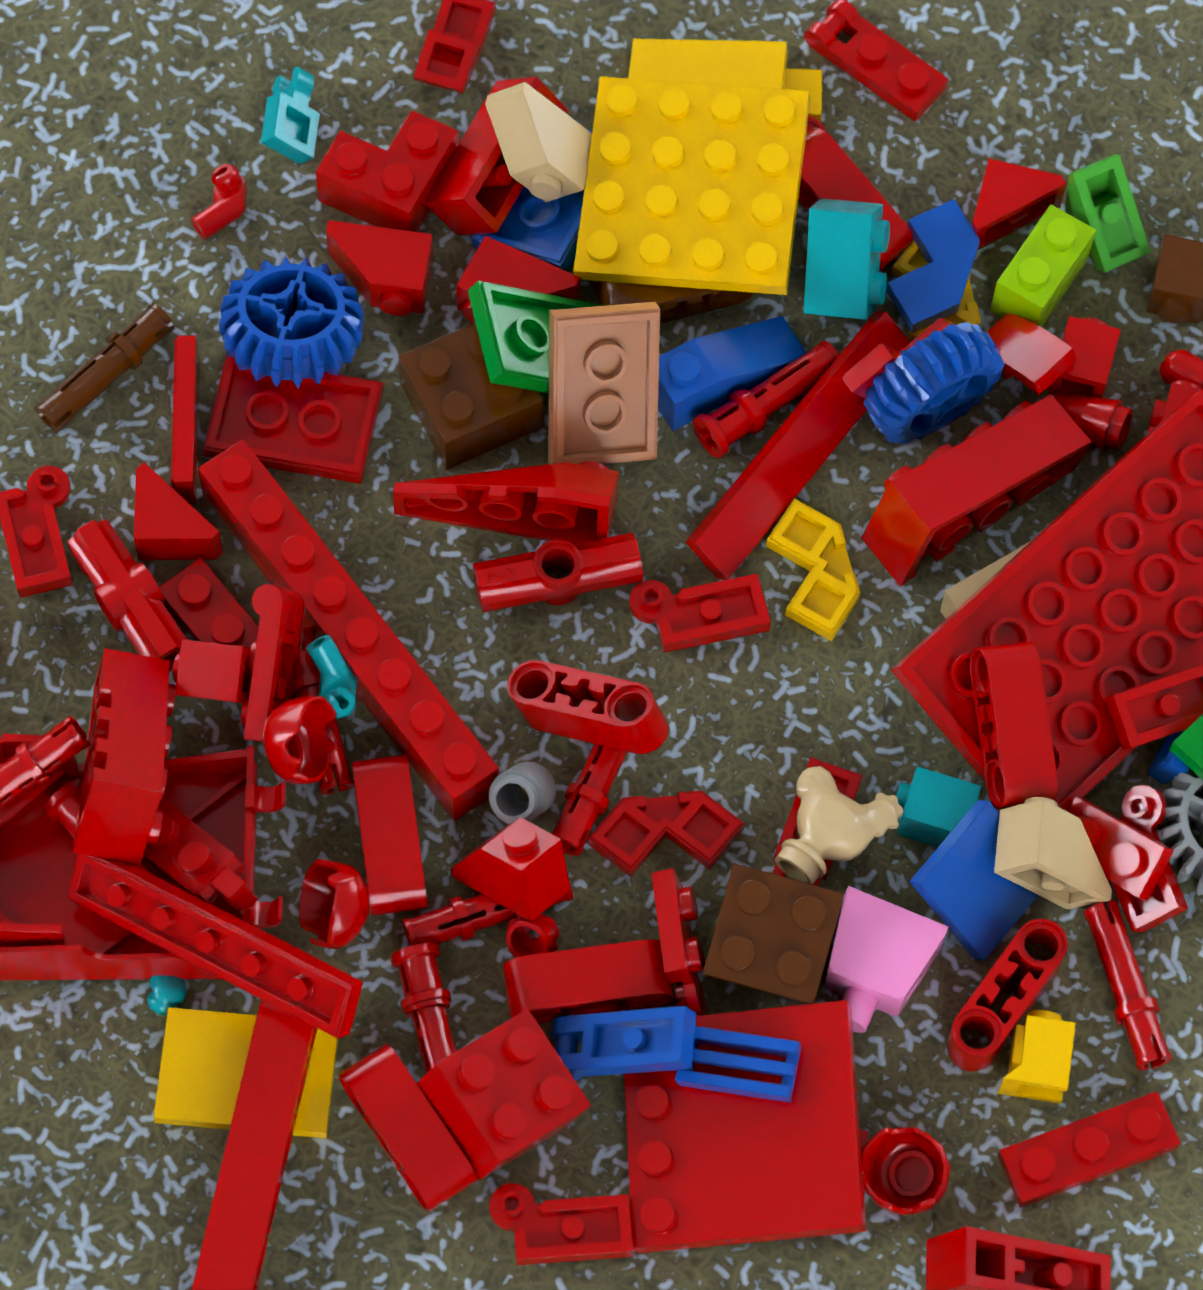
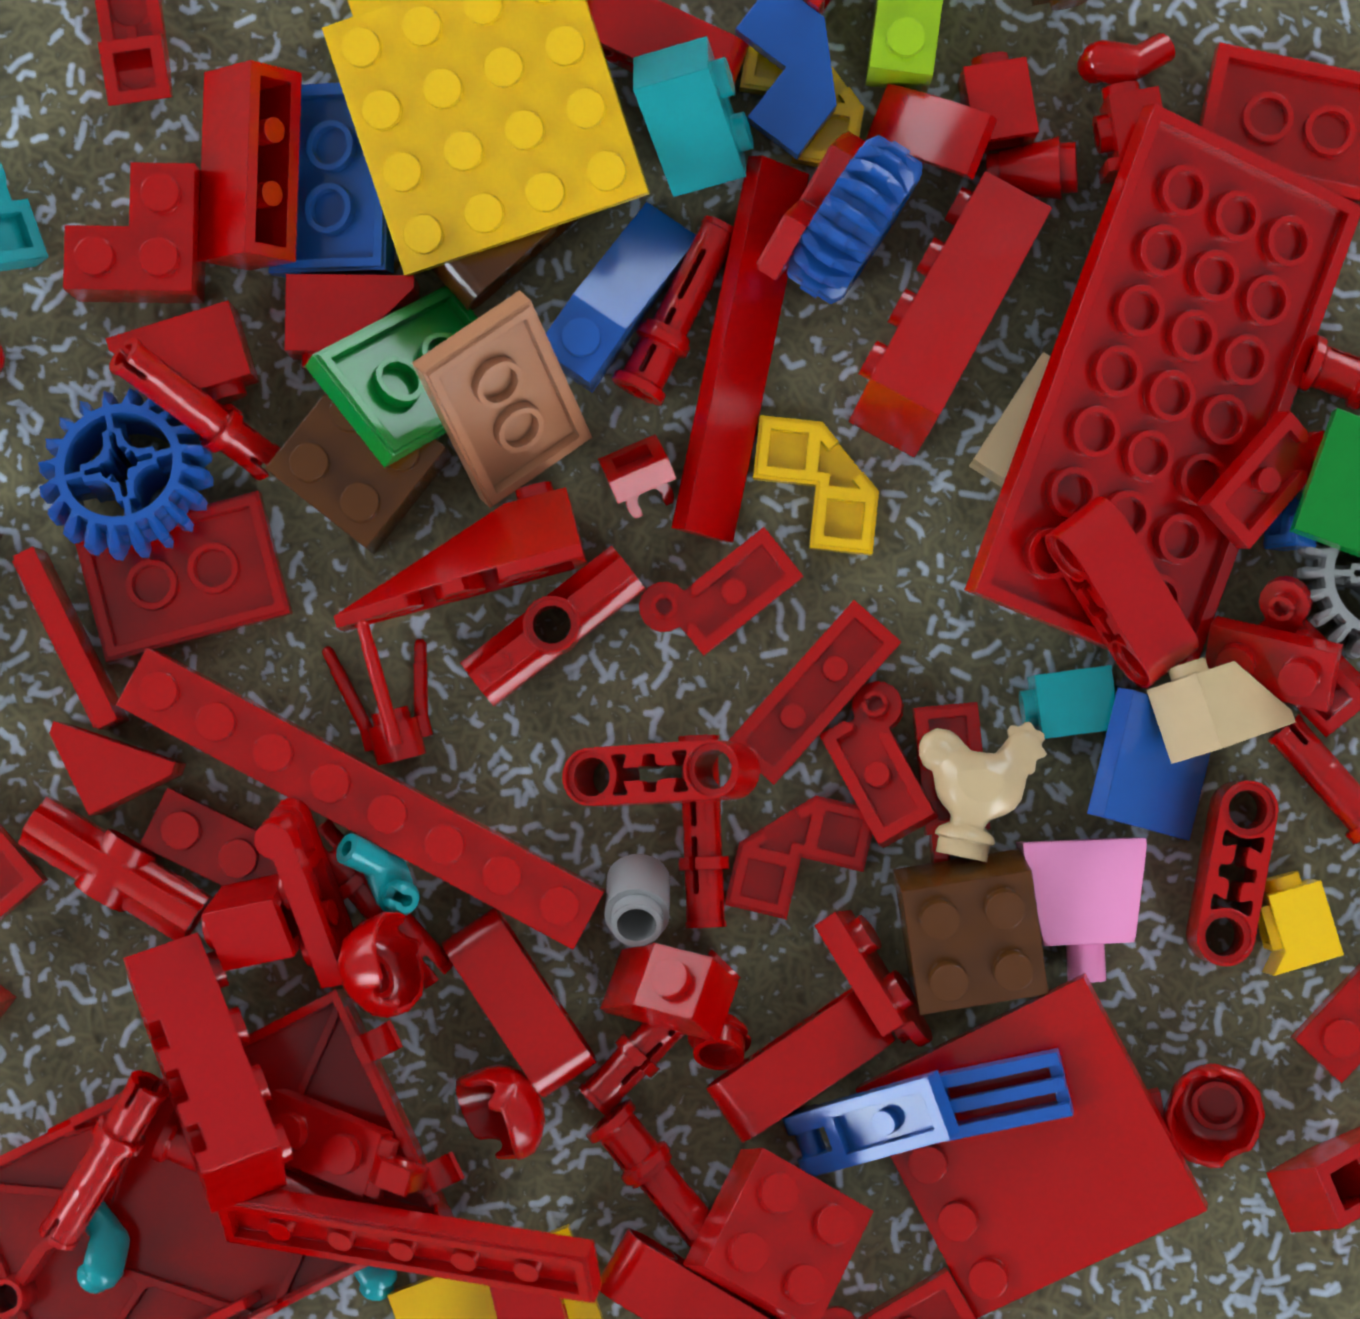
camera: 20 degrees left, 20 degrees up
(368, 292) = (218, 425): none -> red pin
(396, 593) = (394, 732): none -> red plant
(539, 142) = (296, 144): tan slope -> none
(679, 493) = (638, 470): none -> red tile
(740, 712) = (816, 690): none -> red plate
(759, 787) = (877, 767): none -> red hinge

